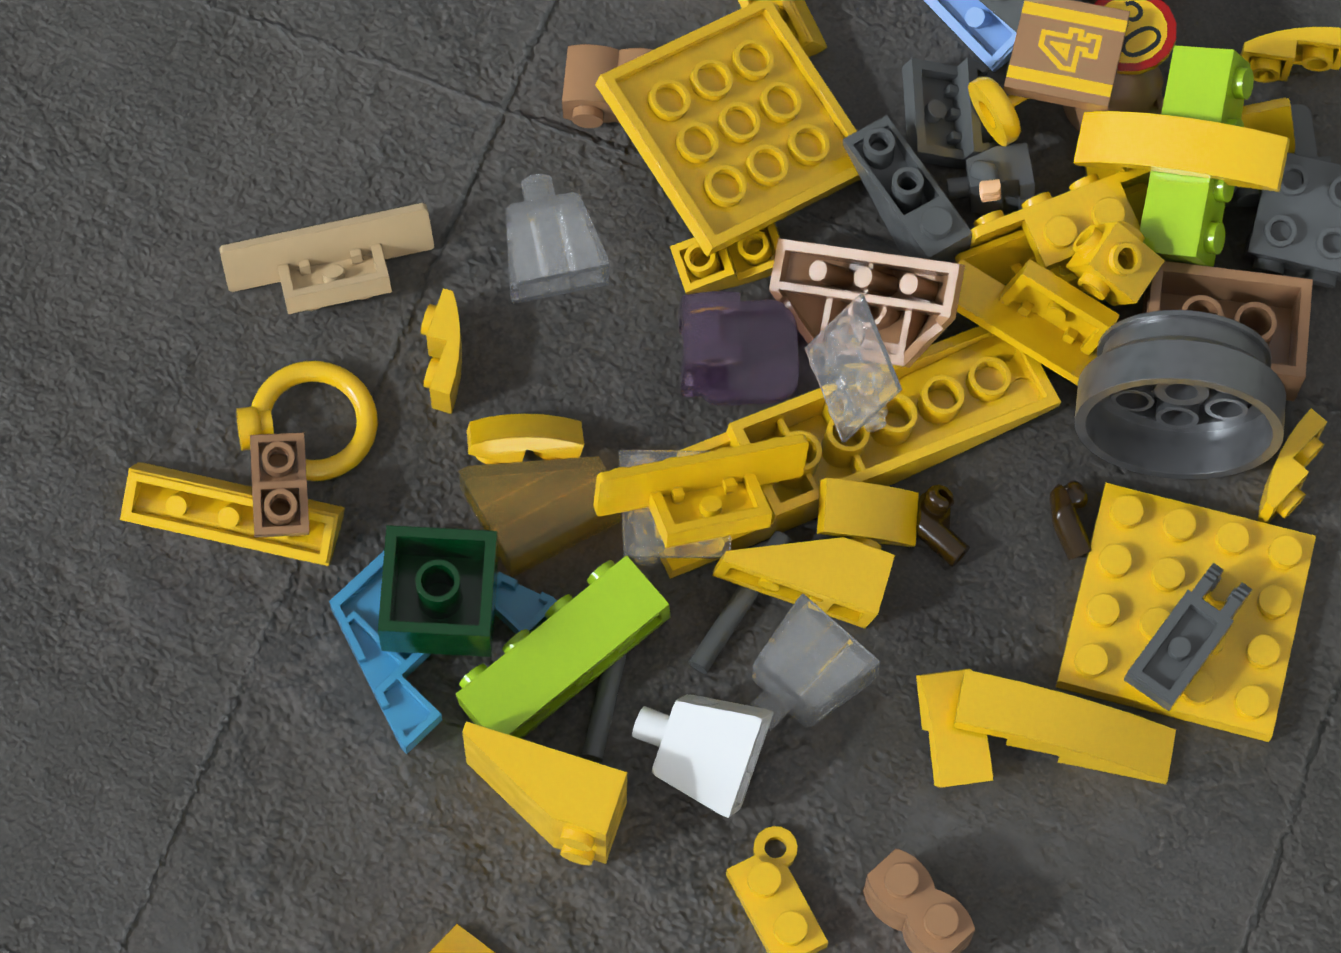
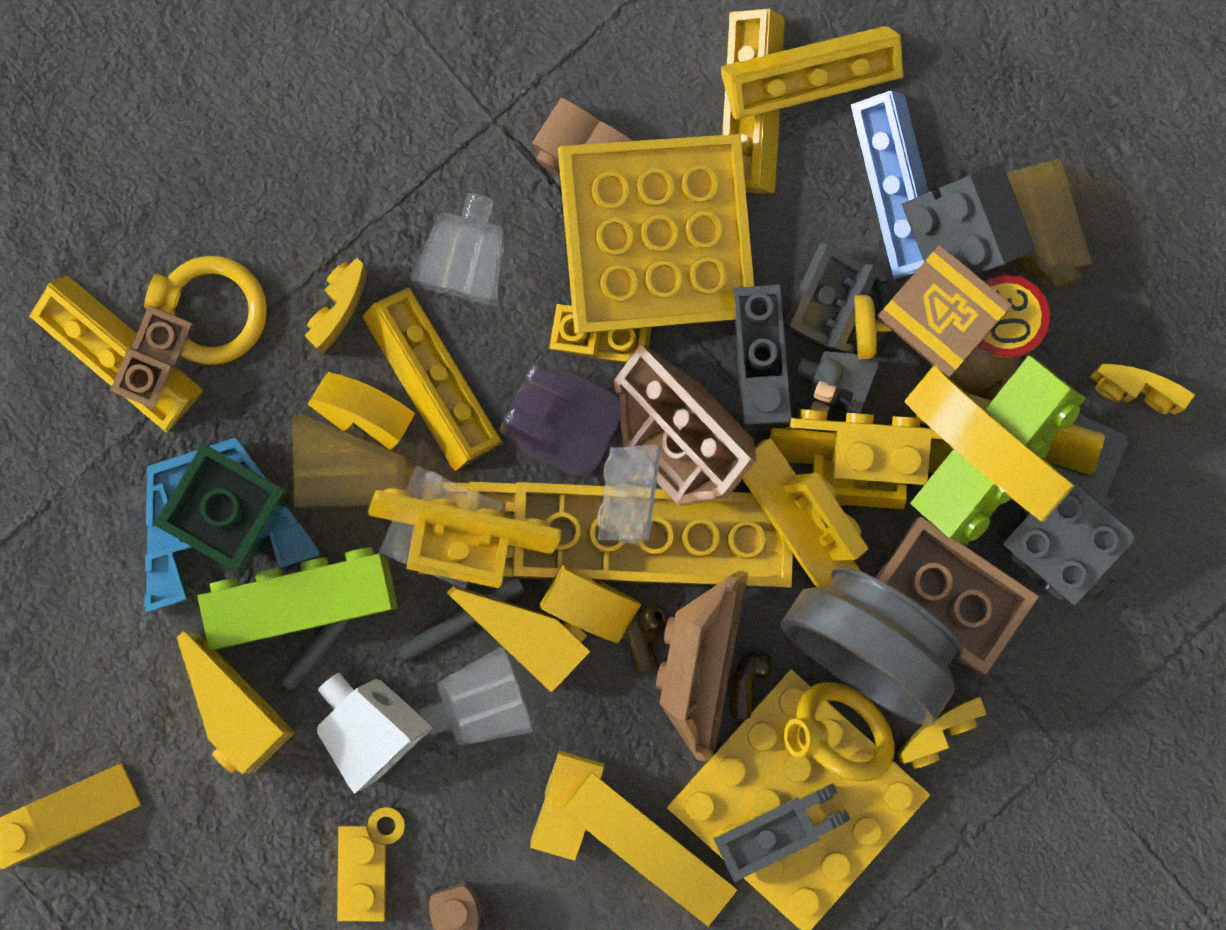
camera: 30 degrees right, 15 degrees up
(331, 259) = (286, 187): tan bracket -> none
(577, 381) = (431, 378): none -> yellow slope
(1011, 511) = (700, 663): none -> medium nougat wedge
(1113, 262) = (884, 506): yellow brick -> none
(1152, 511) = (810, 737): none -> yellow piece

